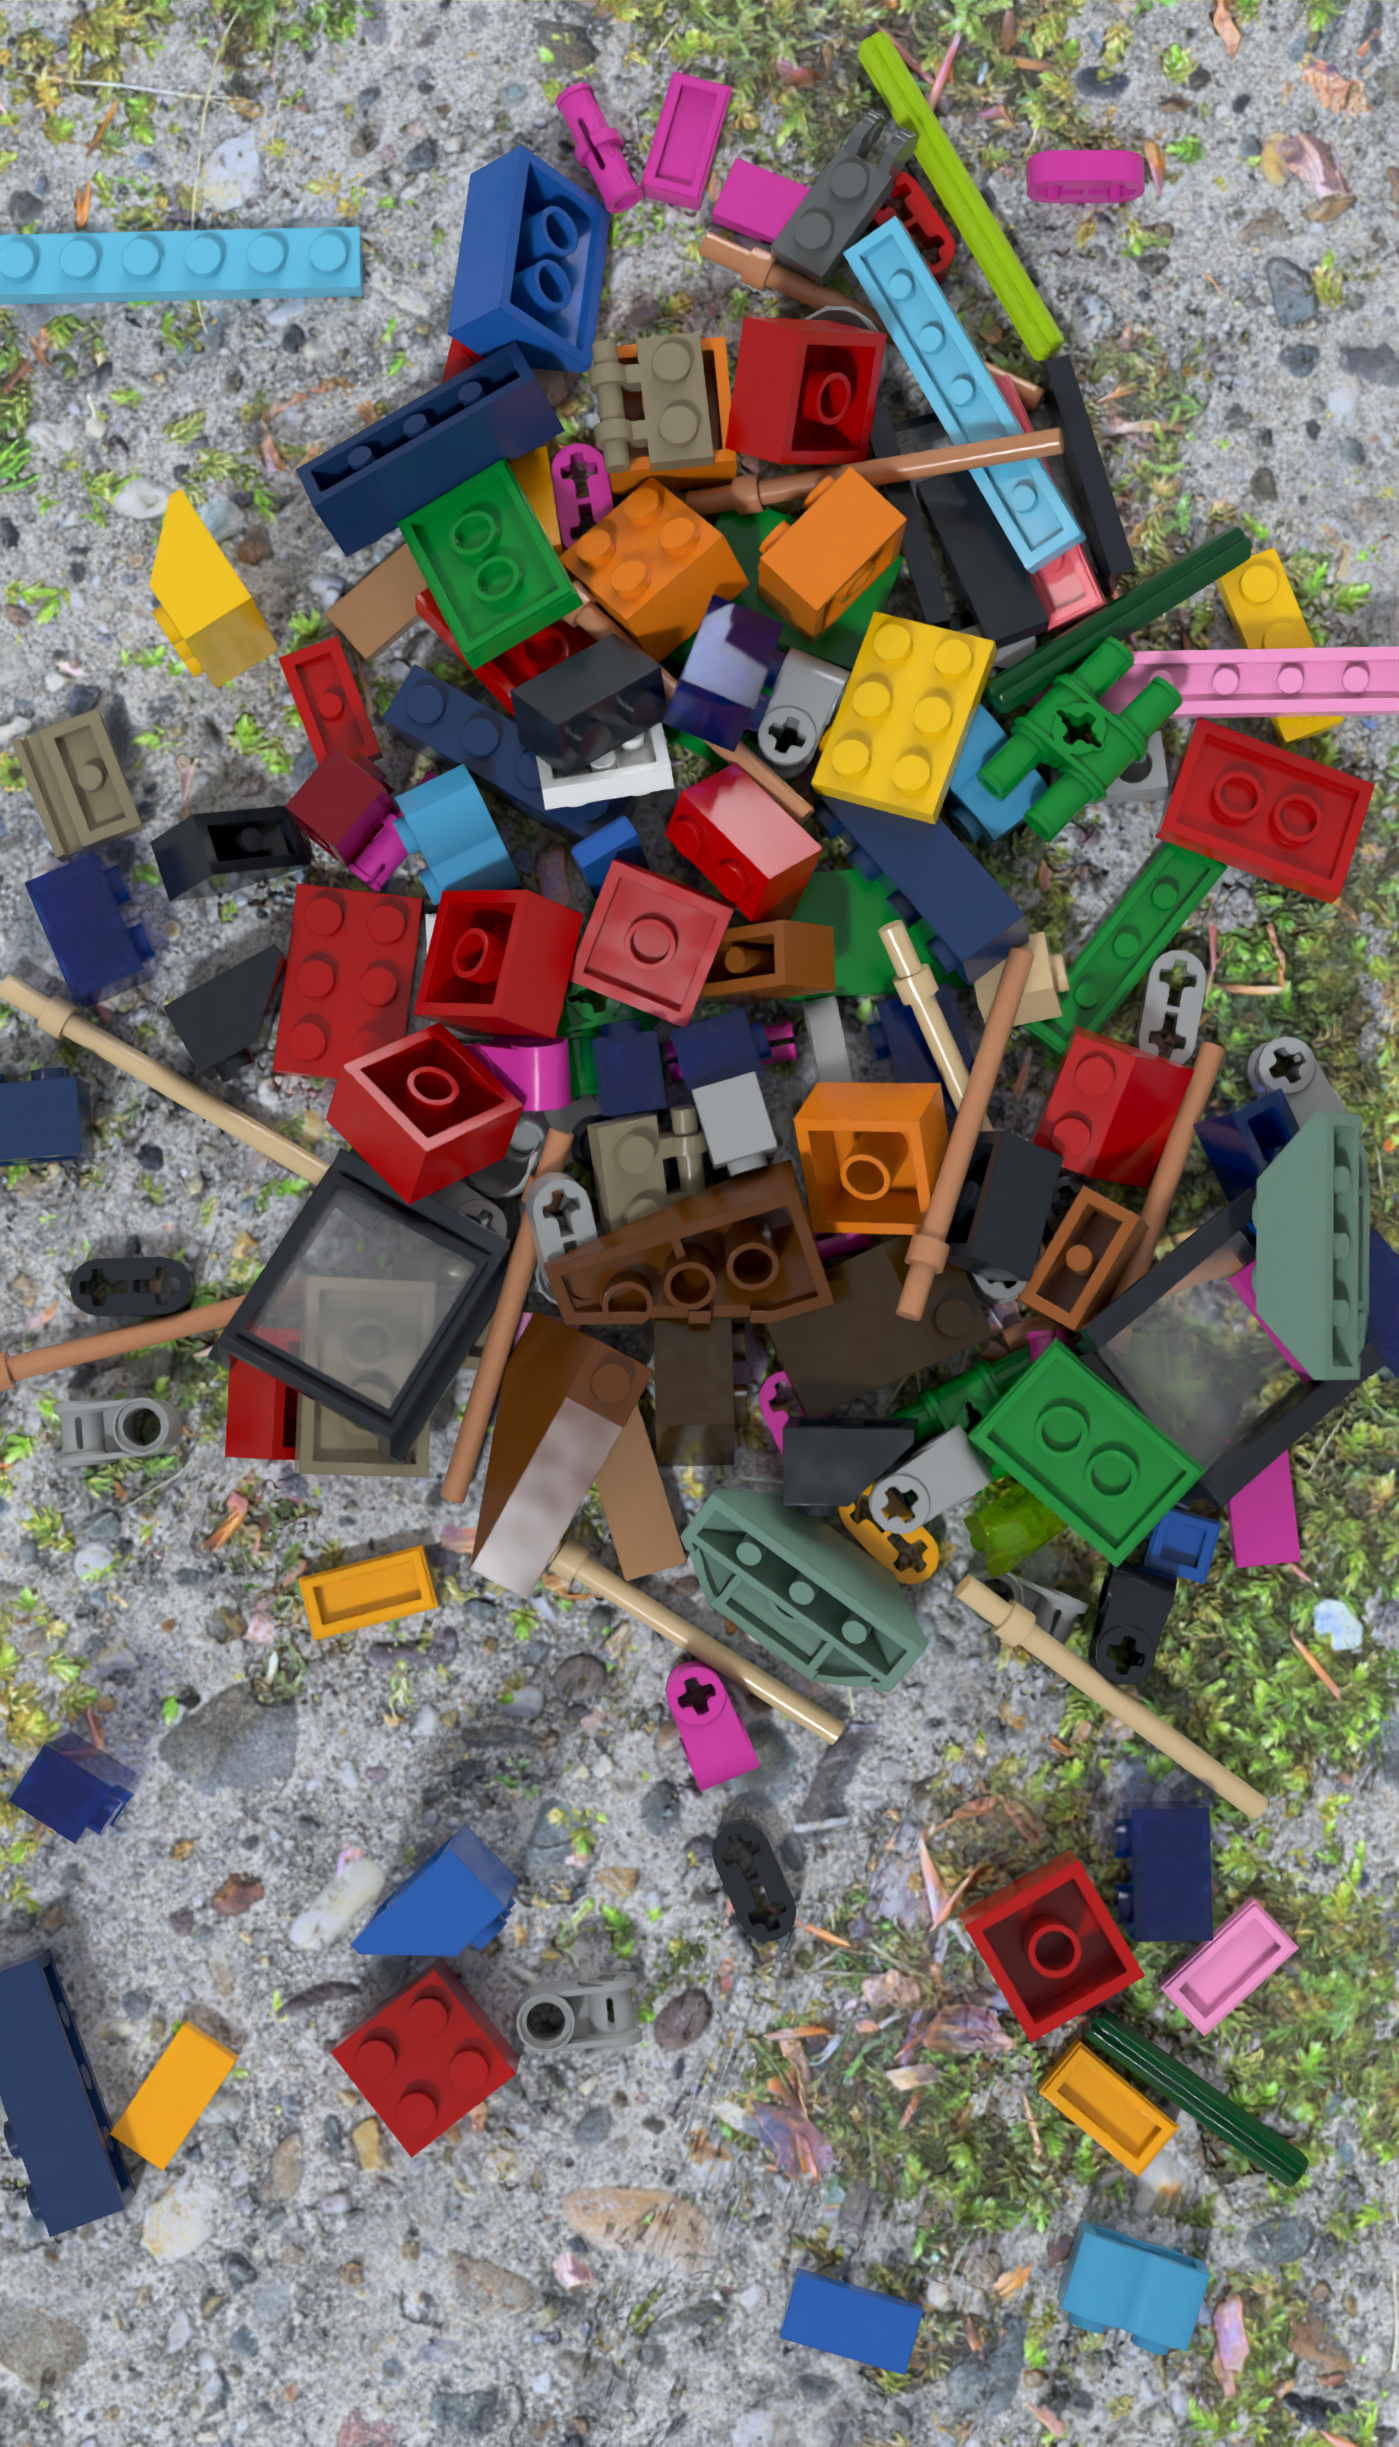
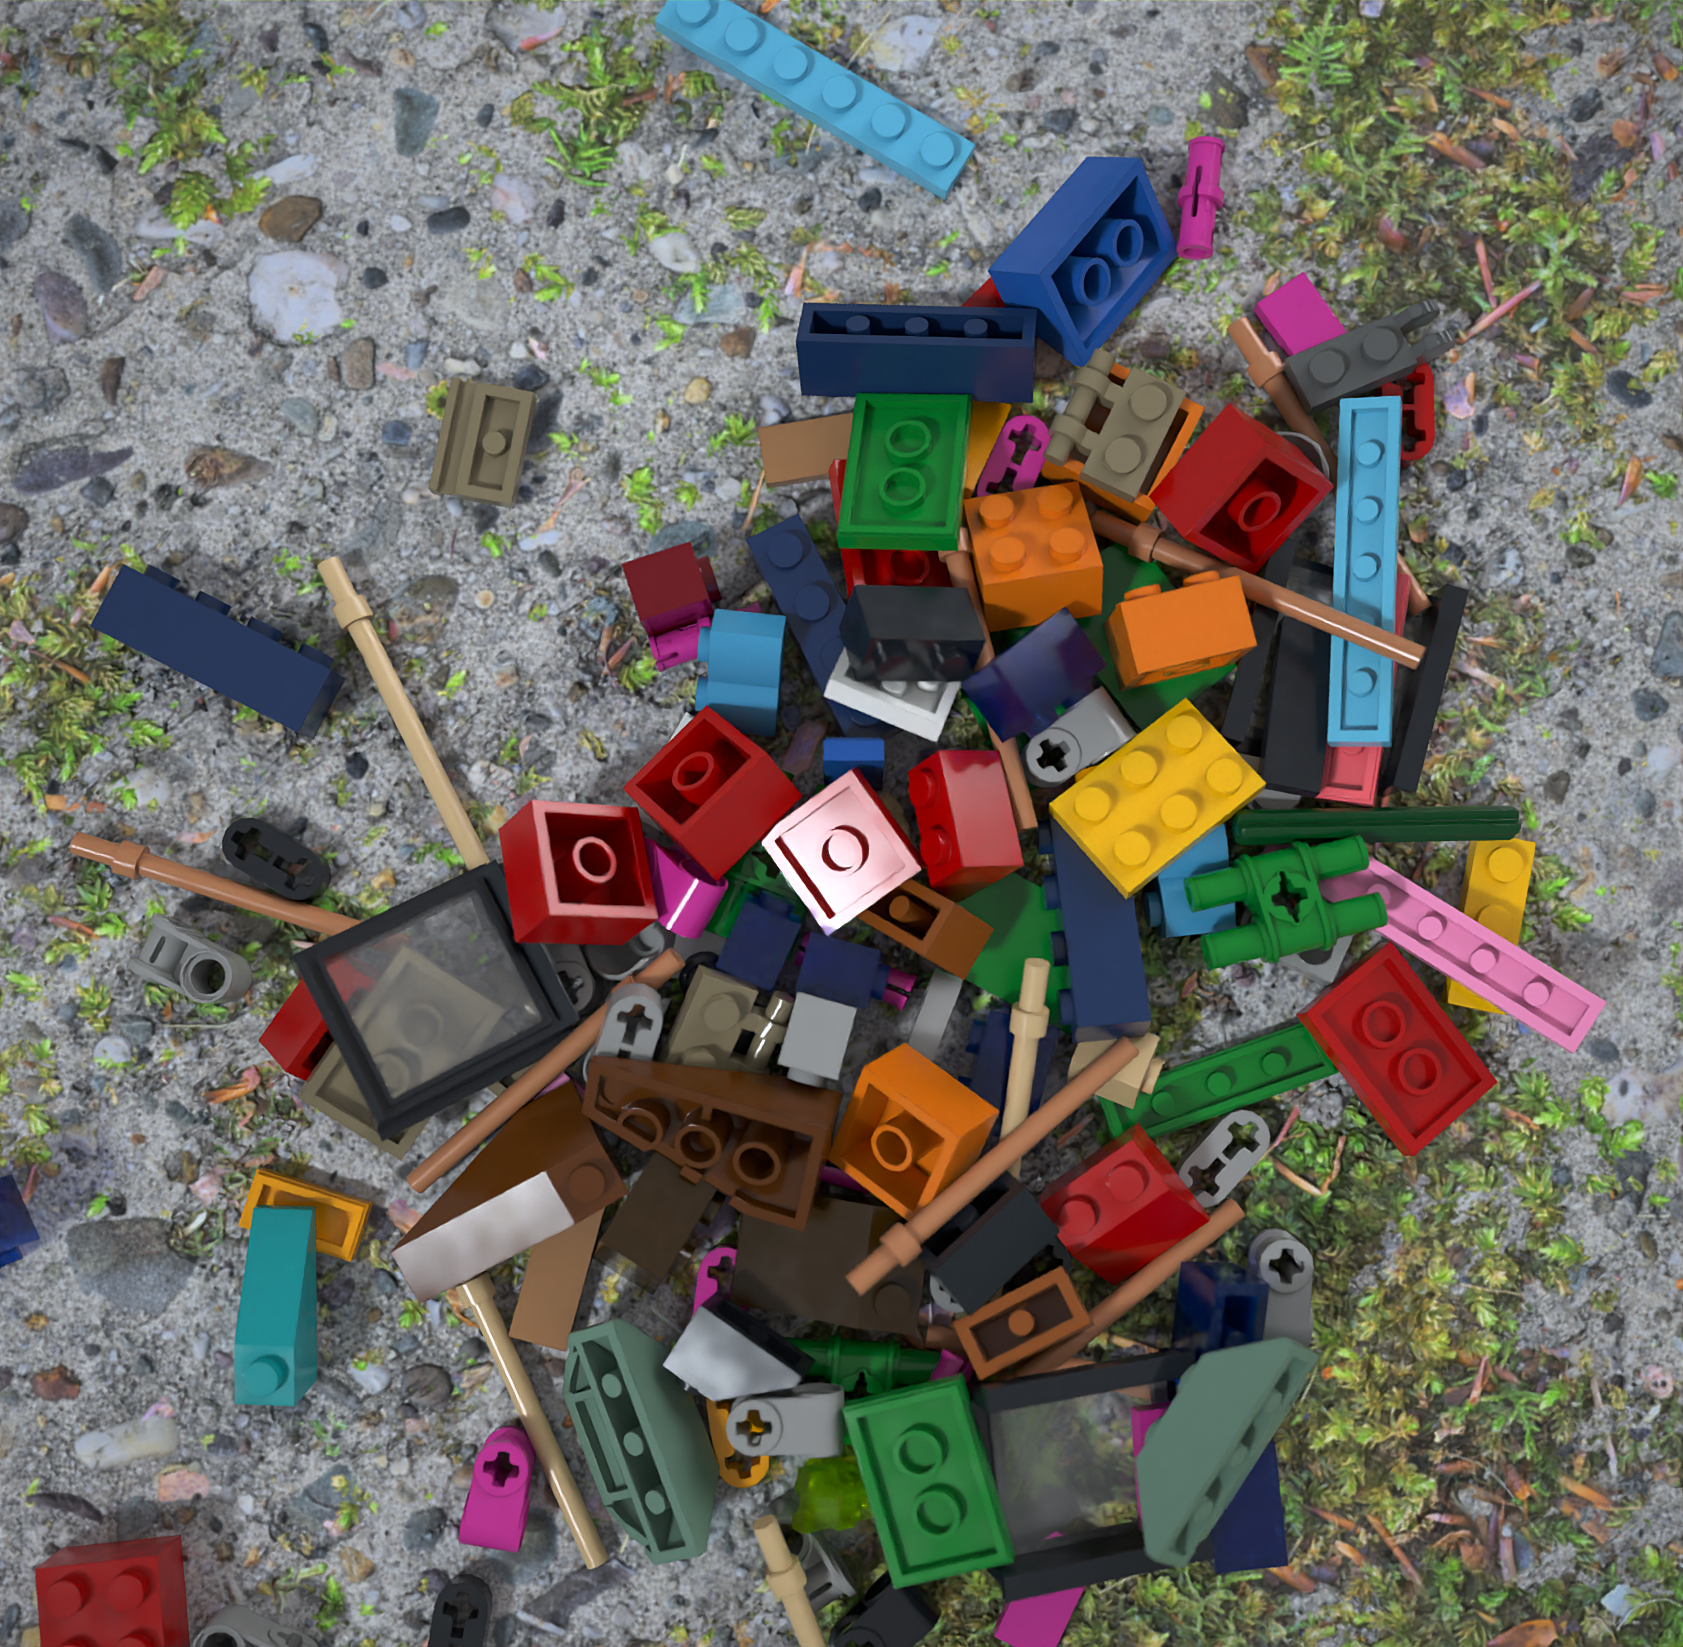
camera: 30 degrees right, 0 degrees up
(92, 930) = (420, 561): clear blue brick -> none
(204, 601) = (664, 358): yellow slope -> none
(228, 851) = (563, 567): black slope -> none
(231, 1015) = (484, 696): black slope -> none
(329, 701) = (716, 502): red plate -> none
(346, 978) = (593, 725): red plate -> none
(398, 1684) = (277, 1308): none -> teal slope
(444, 1905) = (190, 1512): blue slope -> none
(686, 141) = (1272, 234): dark pink tile -> none
(961, 197) = (1461, 412): lime axle -> none
(1085, 176) = (1570, 456): dark pink beam -> none
(1182, 1545) = (964, 1595): blue tile -> none

